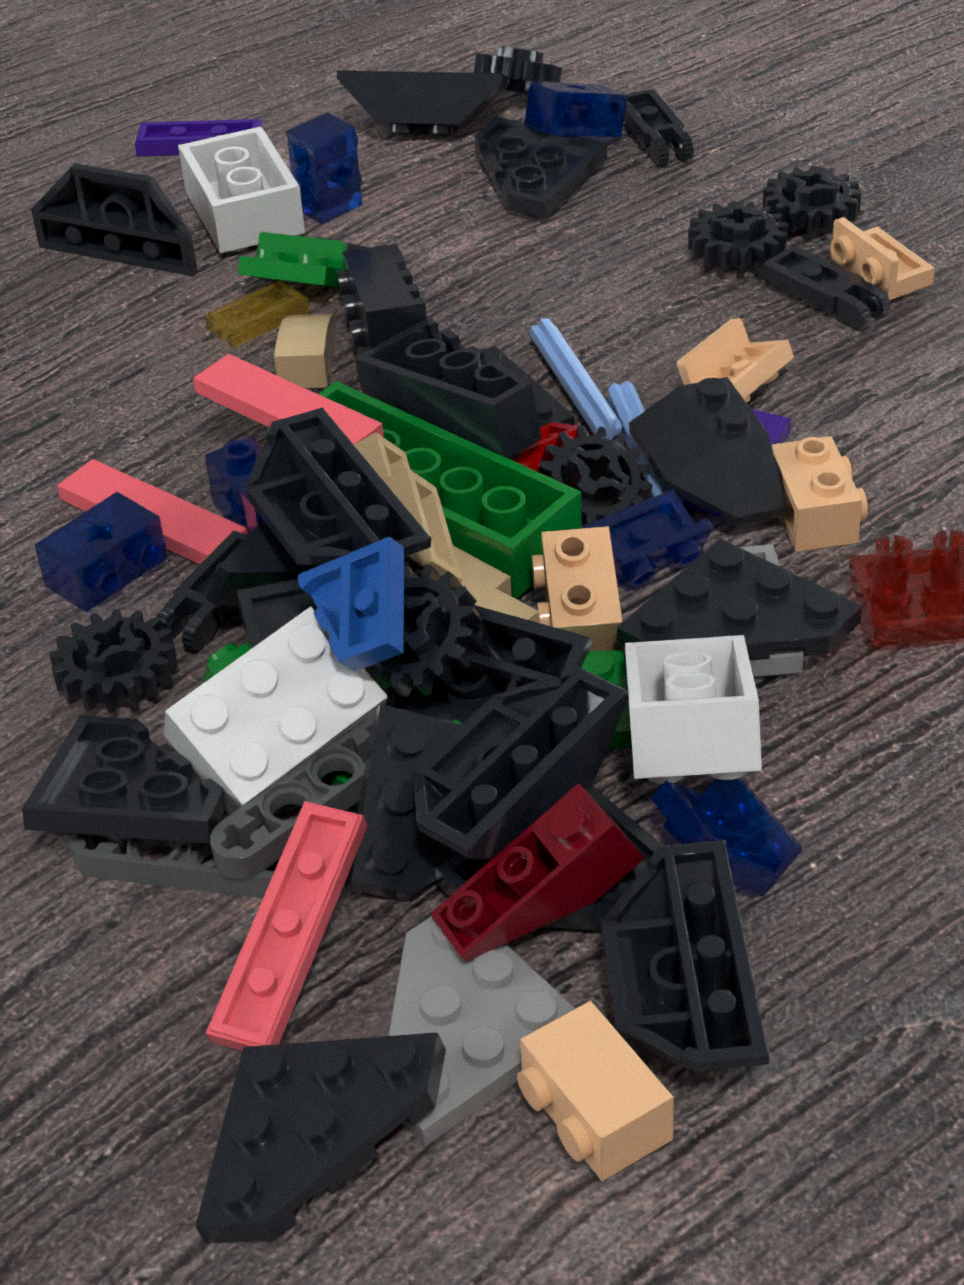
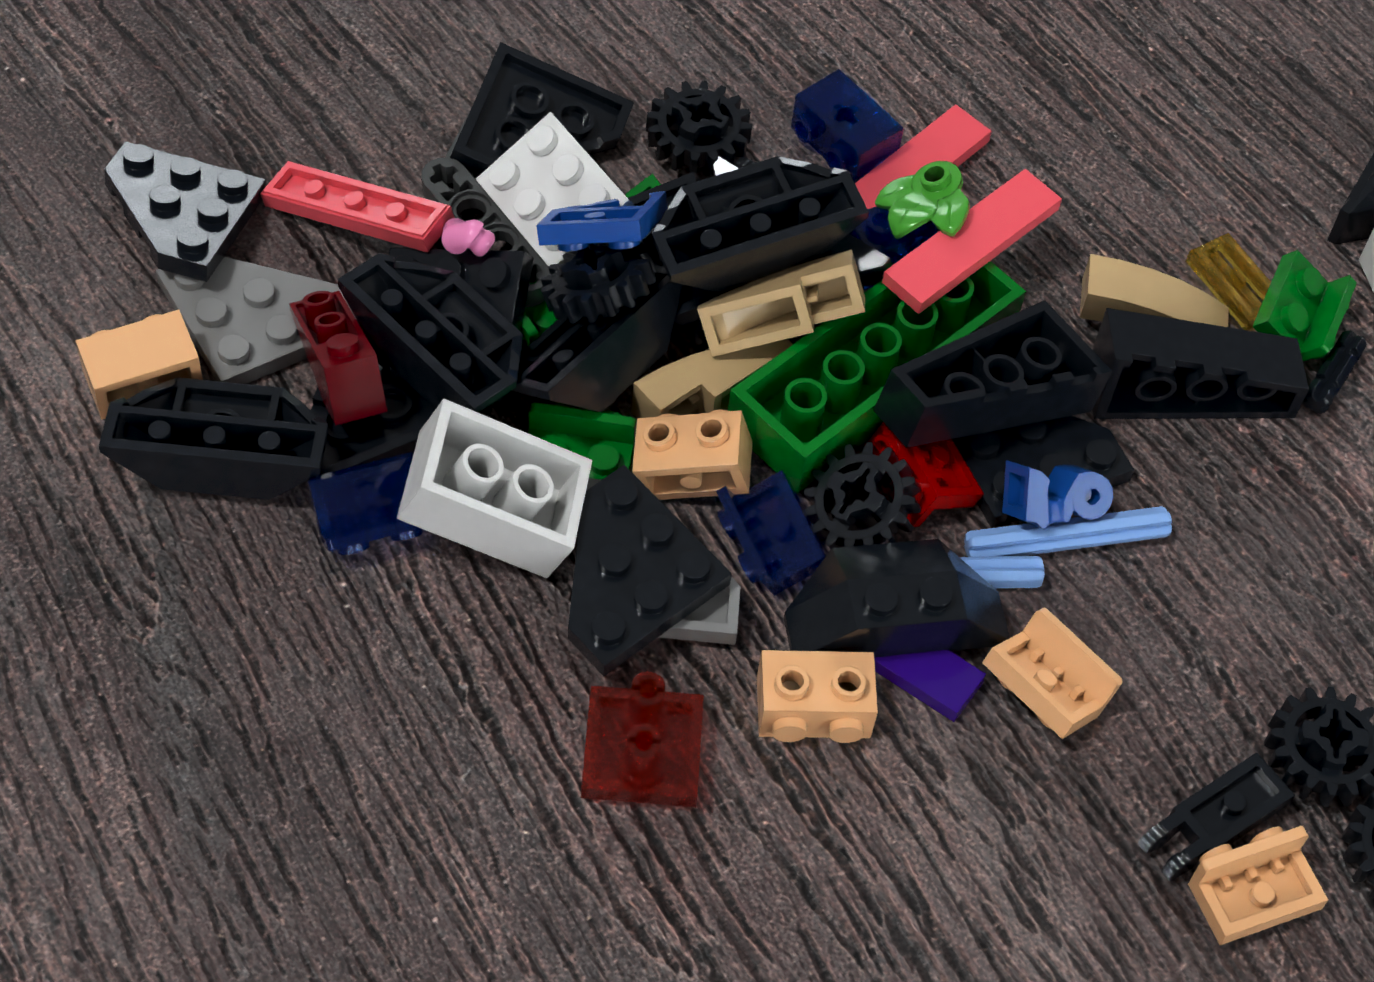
camera: 90 degrees right, 15 degrees up
(242, 440) = (926, 196): none -> bright green plate
(363, 770) = (469, 234): none -> bright pink arm
(552, 370) = (1054, 499): none -> blue leg

